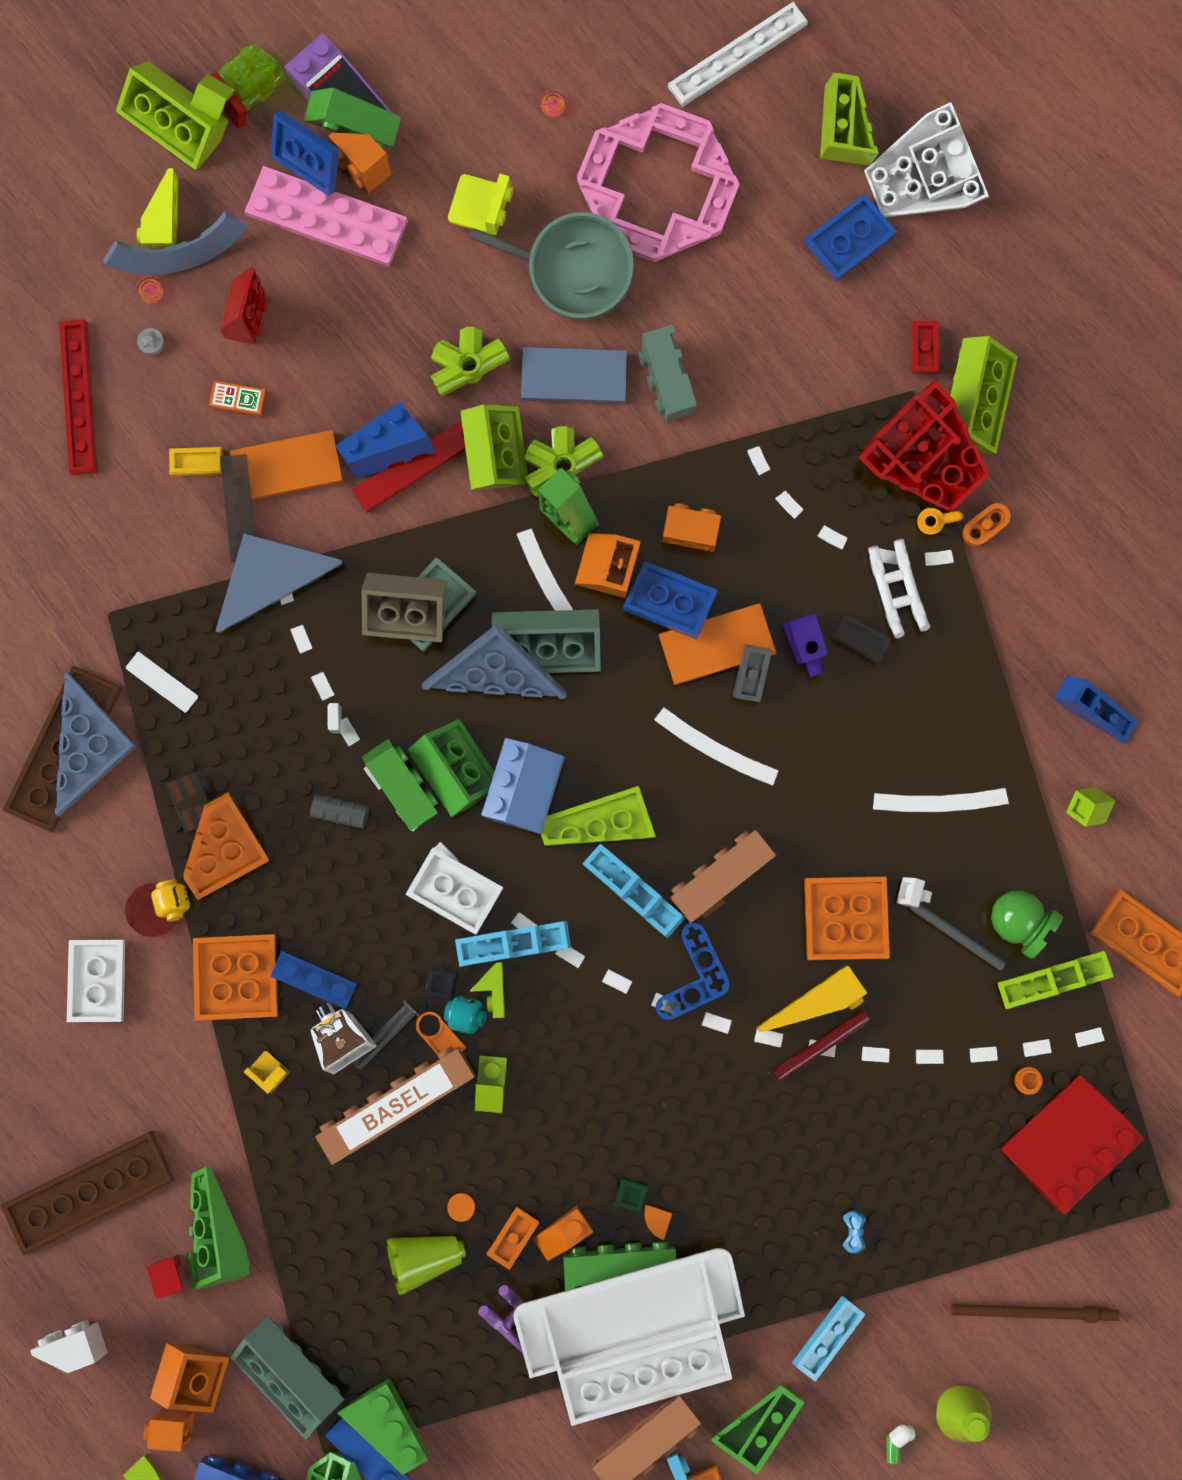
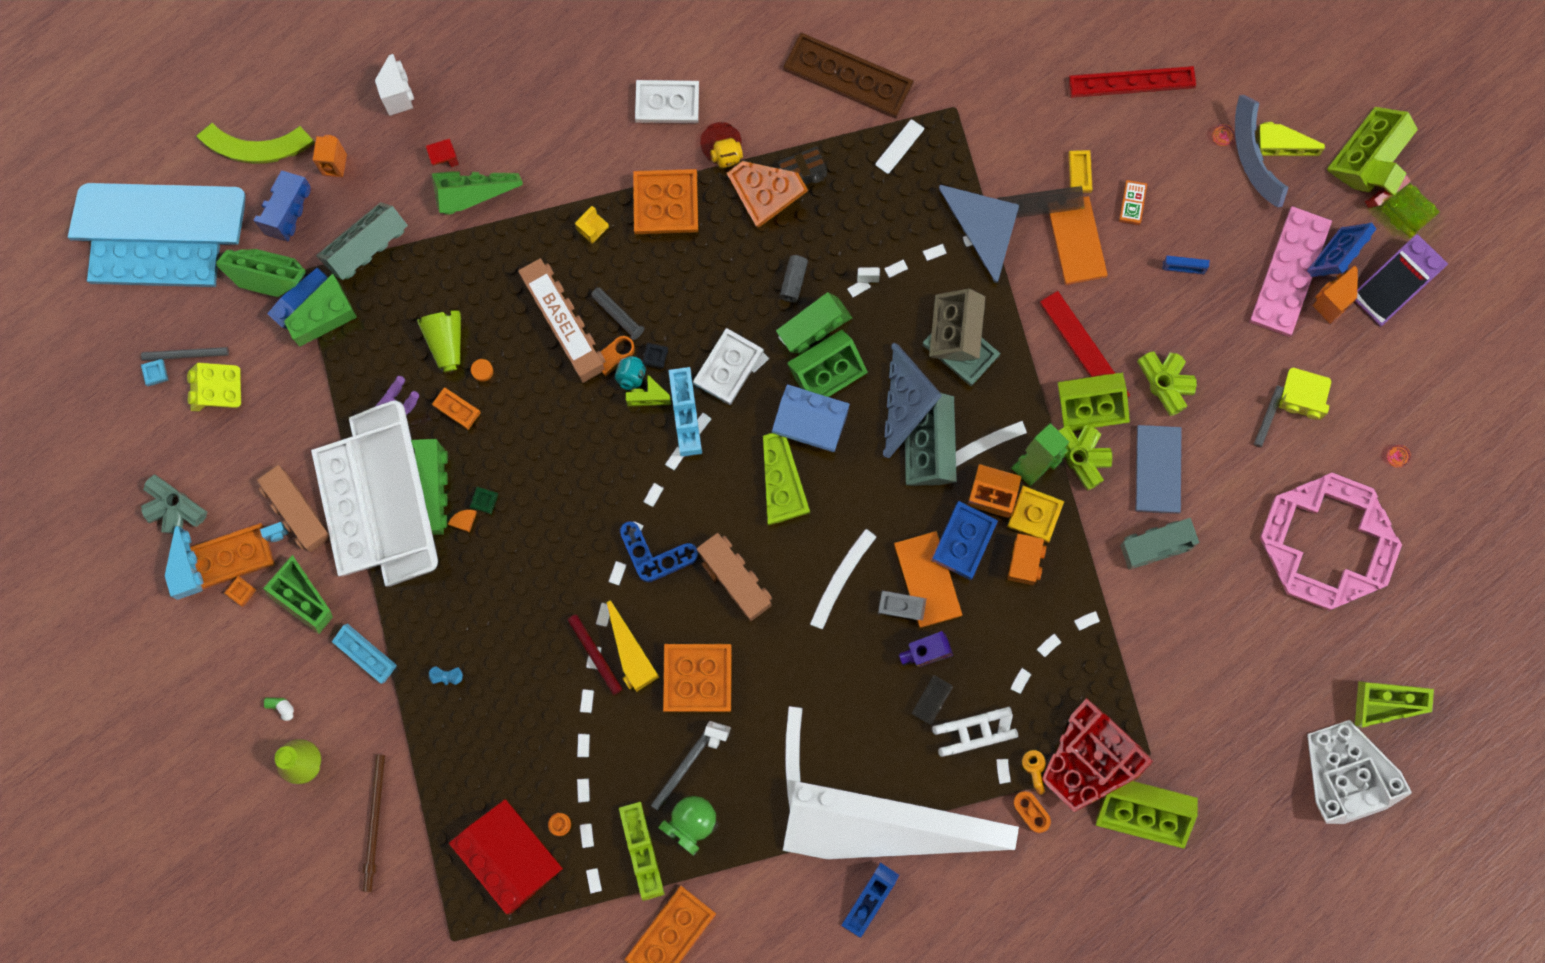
camera: 95 degrees right, 5 degrees down
(87, 747) = (850, 93): sand blue tile -> none
(87, 1192) = (508, 99): reddish brown tile -> none
(150, 342) = (1179, 136): light grey tile -> none
(189, 1378) = (366, 171): orange slope -> none
(245, 308) = (1206, 206): red slope -> none
(313, 980) = (661, 258): blue plate -> none
(319, 337) = (1186, 265): none -> blue tile
(339, 1039) = (614, 277): torso -> none
(351, 115) = (1373, 288): bright green wedge -> none
(383, 442) = (1096, 313): blue wedge -> none
(490, 1084) = (574, 393): lime slope -> none
(563, 1233) = (457, 447): orange slope -> none
(581, 266) = (1252, 474): sand green brick -> none
(633, 891) = (725, 506): medium azure slope -> none
(634, 516) = (1035, 514): none -> yellow tile
(737, 54) = (1452, 614): white tile -> none
(850, 237) = (1287, 704): blue plate -> none
(924, 347) = (1189, 765): red plate -> none
(1012, 730) = (855, 825): none -> white wedge
(1090, 806) = (787, 890): lime panel -> none

